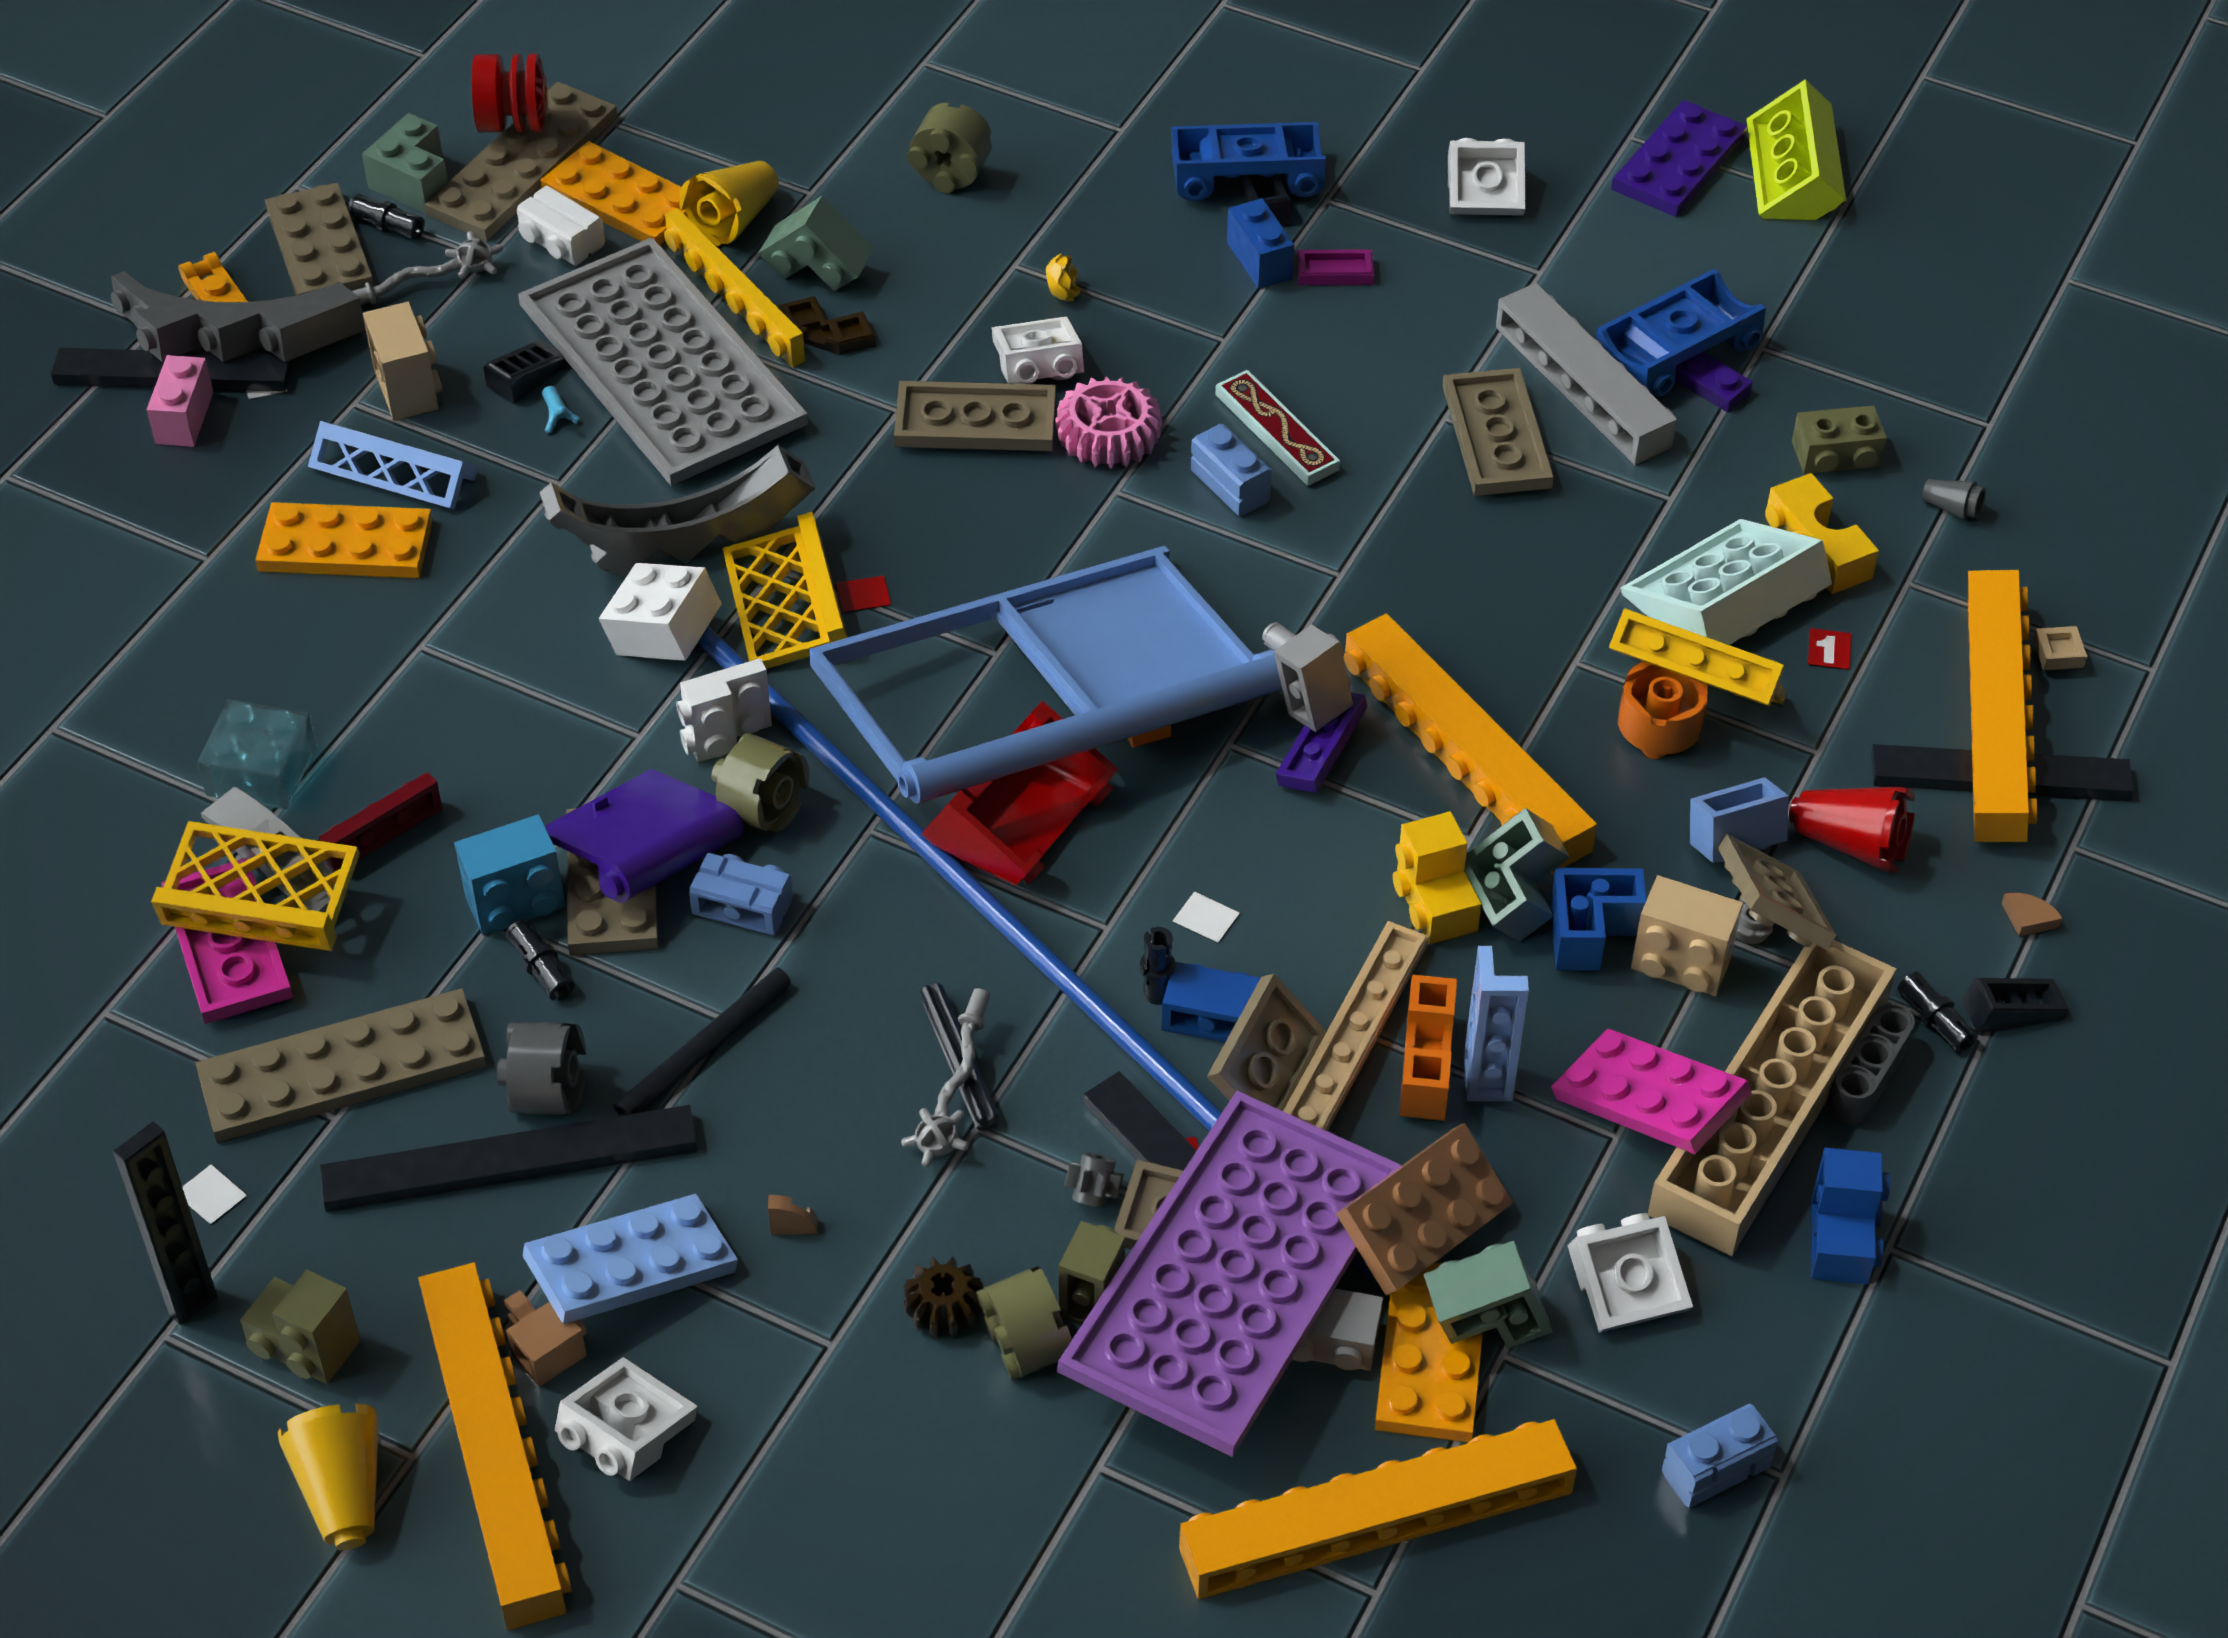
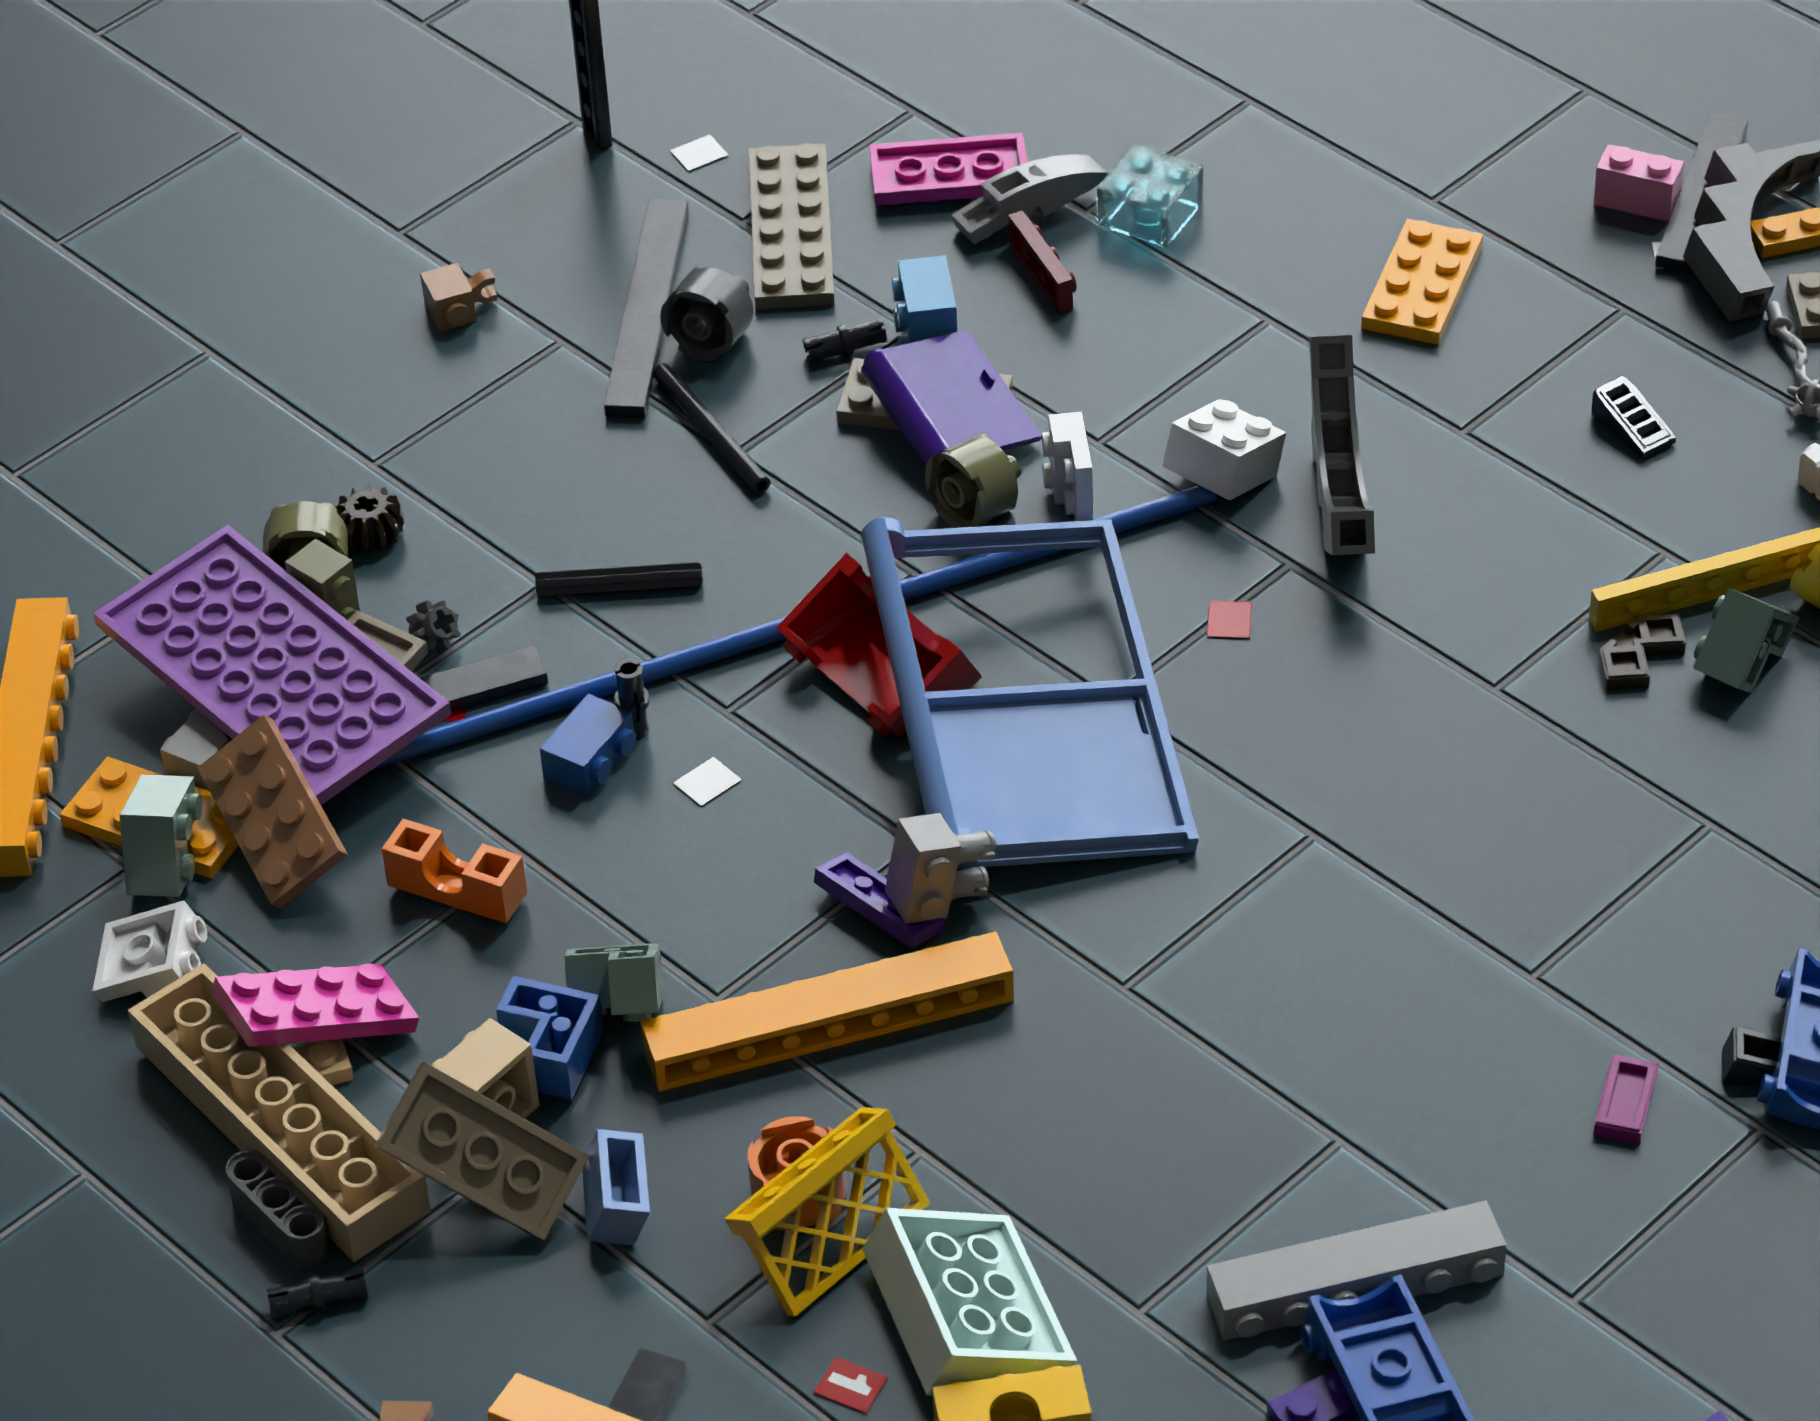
camera: 110 degrees right, 5 degrees down
(240, 914) = (951, 154): yellow fence -> none
(303, 1326) = (525, 167): olive brick -> none
(336, 1469) = (386, 173): yellow cone -> none
(401, 453) = (1518, 315): light blue fence -> none
(403, 360) = (1638, 314): tan brick -> none
(492, 1446) = (370, 257): light orange brick -> none
(556, 408) = (1564, 435): medium azure bar -> none
(623, 1419) = (354, 326): white plate -> none
(629, 1258) = (497, 344): light blue plate -> none
(663, 361) = (1612, 514): light grey plate -> none
(741, 893) = (860, 465): medium blue brick -> none
(789, 1218) = (498, 446): medium nougat tile -> none
(816, 577) = (1223, 574): yellow fence -> none
(937, 1133) = (537, 543): light grey piece -> none
(975, 416) = (1451, 733): dark tan plate -> none
(1038, 350) = (1537, 795): white plate -> none
(1062, 278) = (1653, 855): yellow plate -> none
(1108, 422) = (1404, 821): bright pink gear -> none
(1231, 469) = (1291, 911): medium blue brick -> none
(1260, 243) = (1667, 1021): blue brick -> none
(1268, 1046) = (499, 756): dark tan plate -> none
(1277, 427) = (1362, 980): tile -> none
(1357, 1026) = (493, 824): tan tile -> none
(1434, 878) = (657, 918): yellow brick -> none
(1486, 177) = (1742, 1271): white plate -> none
(1494, 1031) = (400, 863): light blue fence -> none
(1497, 432) = (1286, 1165): dark tan plate -> none
(1845, 1214) = (113, 1117): blue brick -> none
(1858, 822) = (563, 1291): red cone -> none
(1989, 1013) = (300, 1331): black slope -> none

